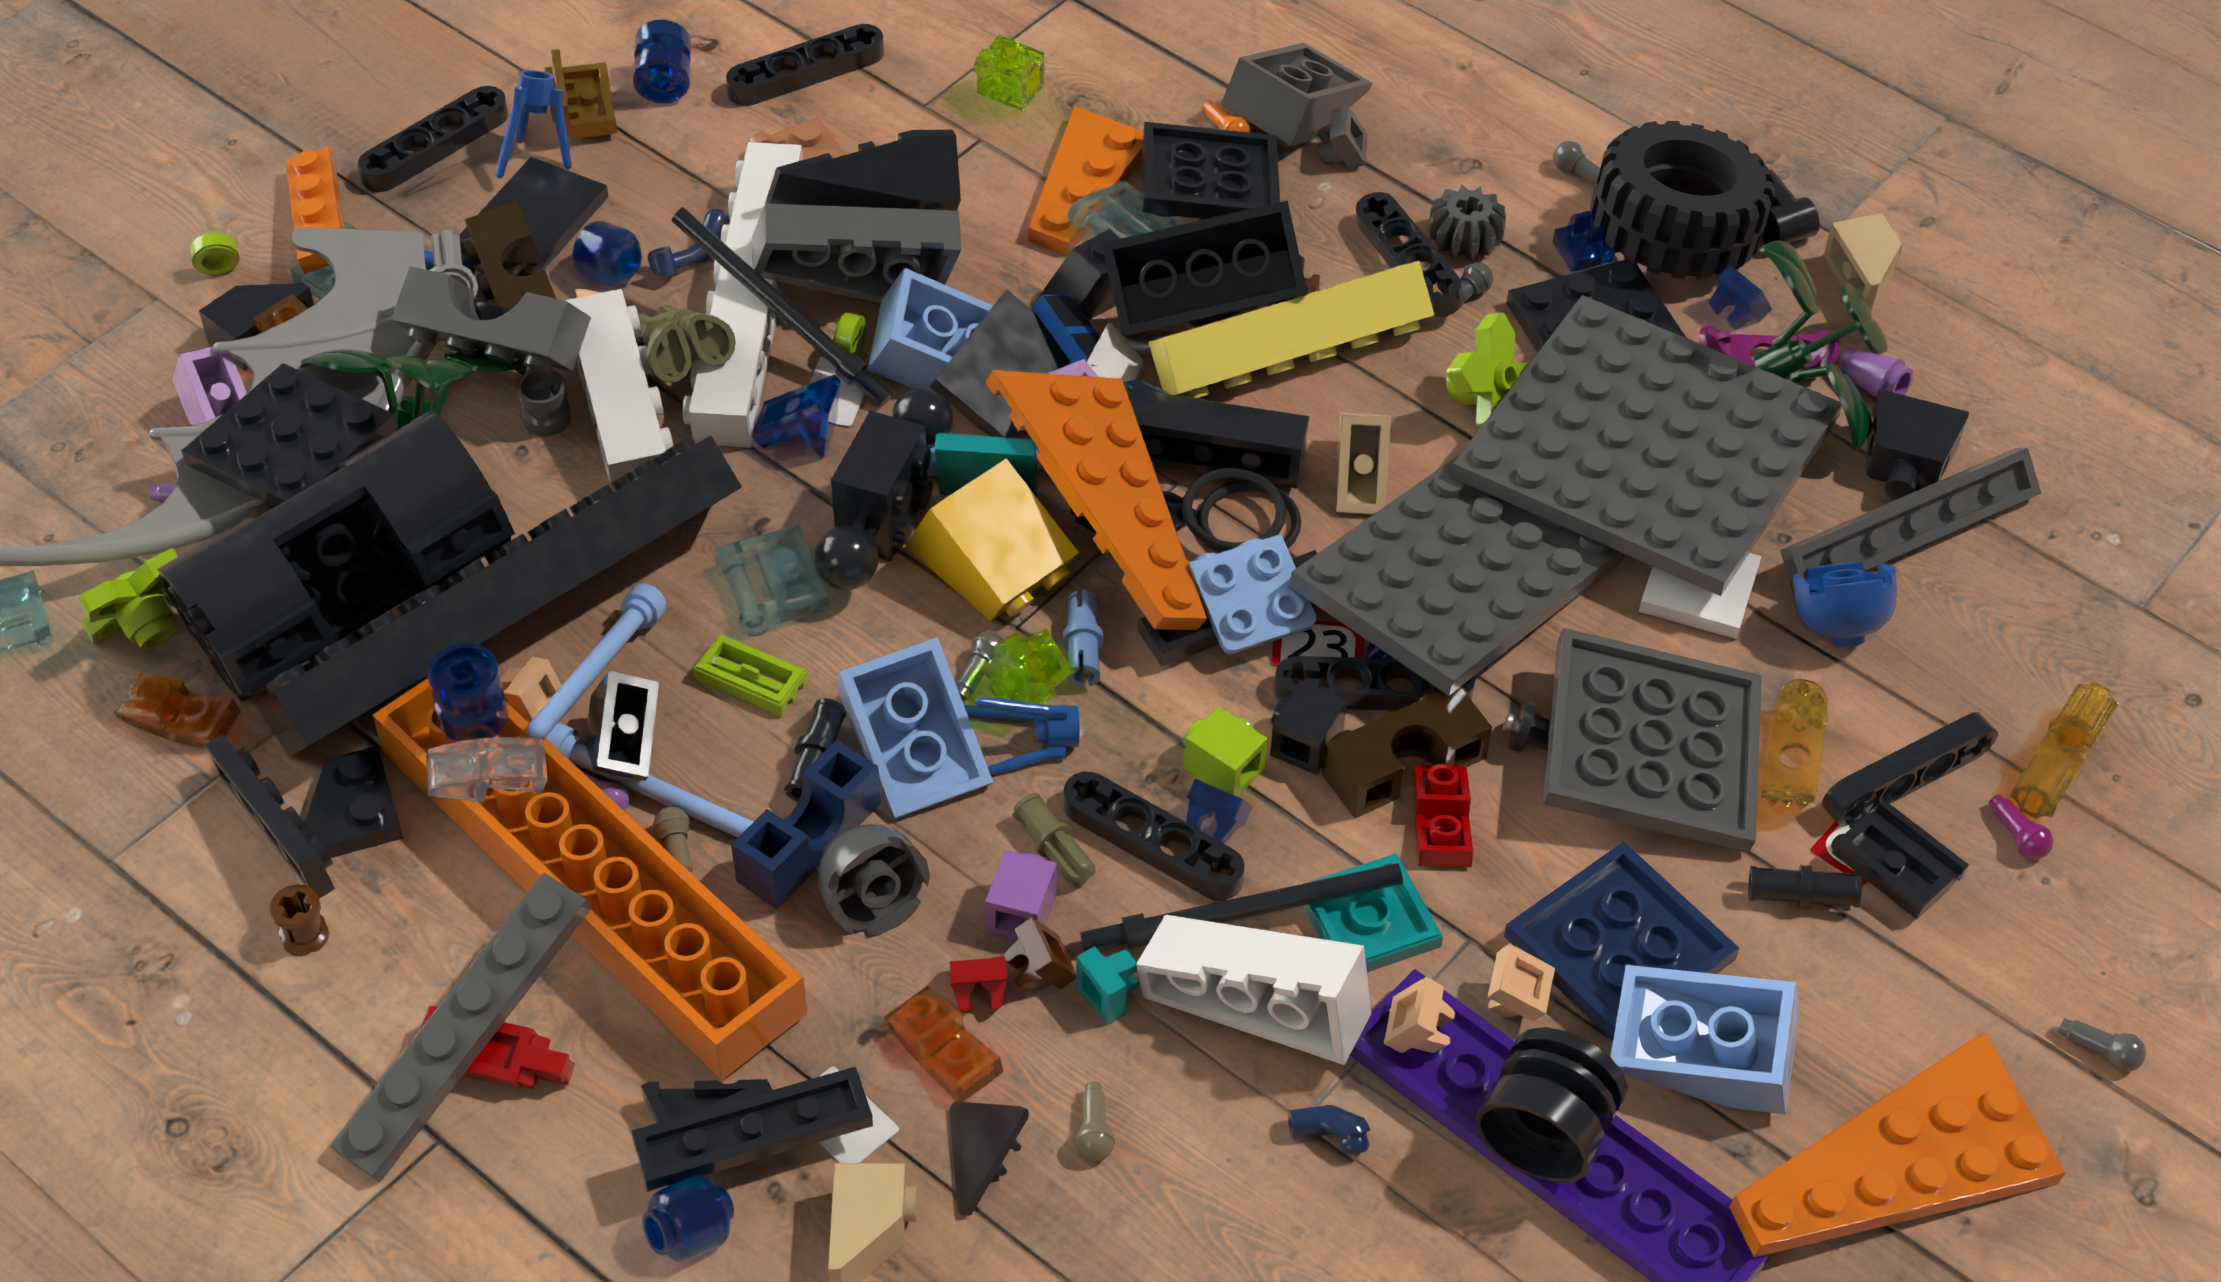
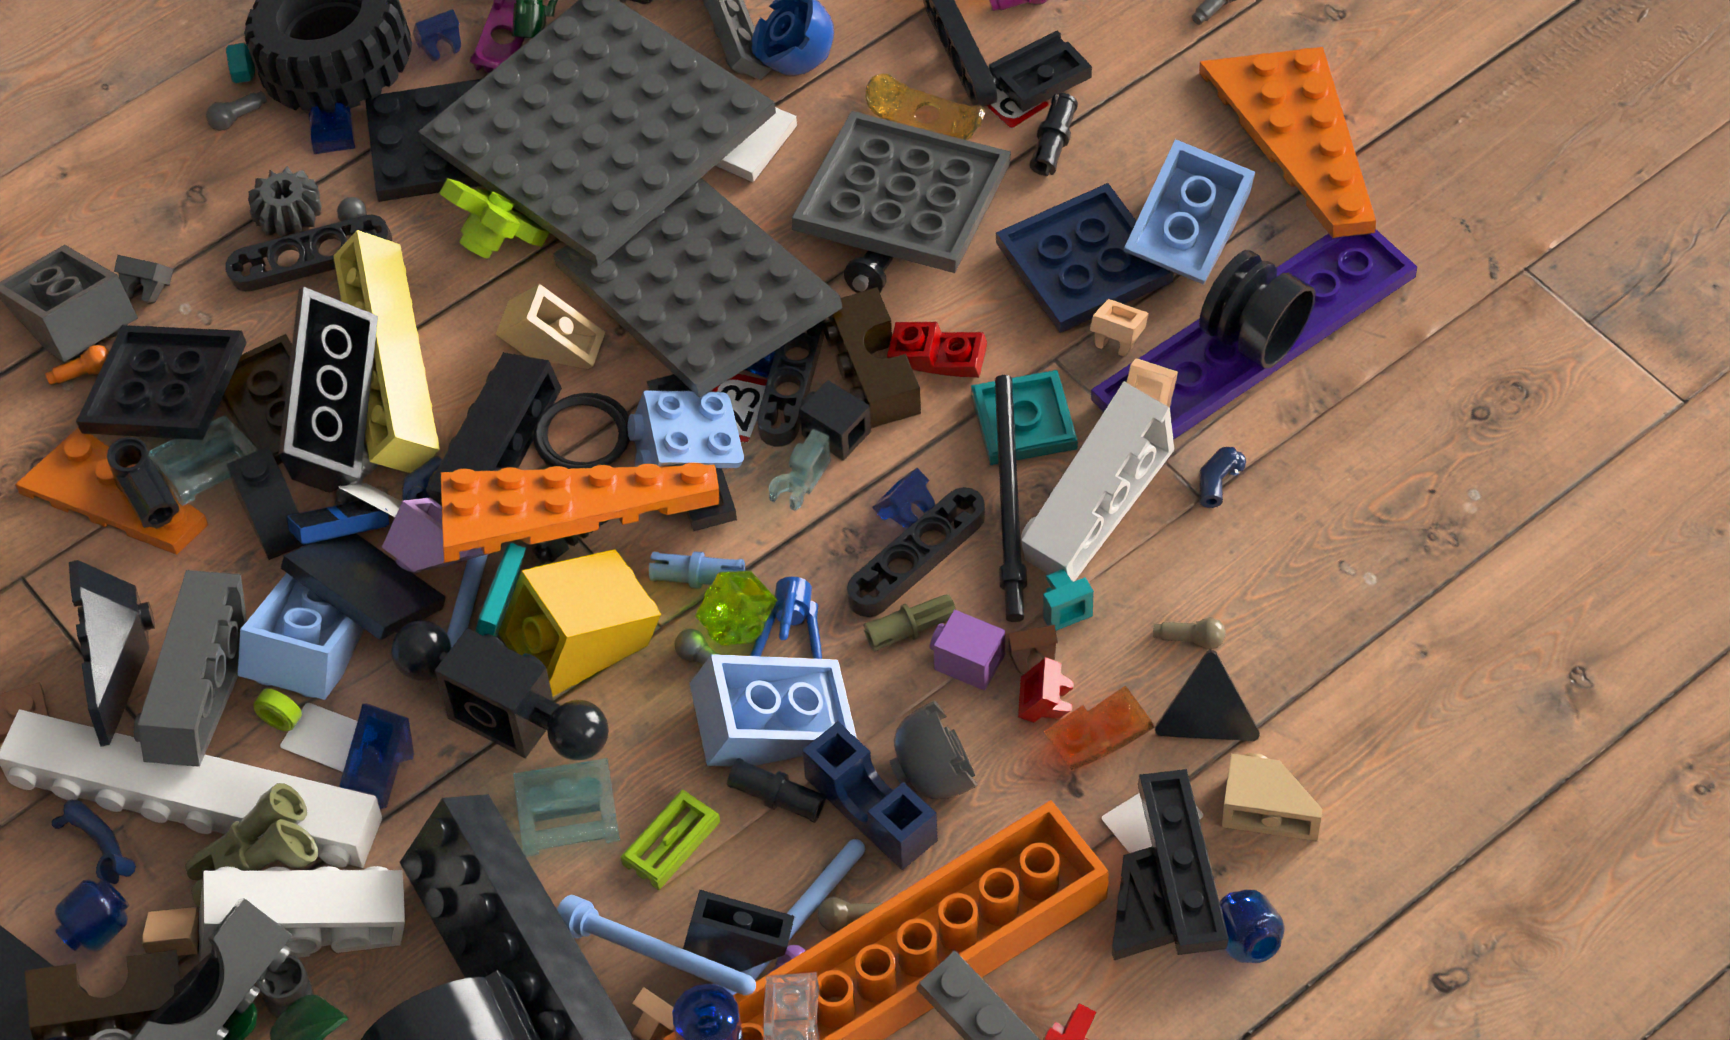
camera: 75 degrees left, 5 degrees up
(849, 366) = (316, 713): black bar -> none
(1080, 174) = (141, 483): none -> black piece
(1224, 751) = (849, 482): lime brick -> none
(1245, 703) = (807, 465): none -> clear light blue plate

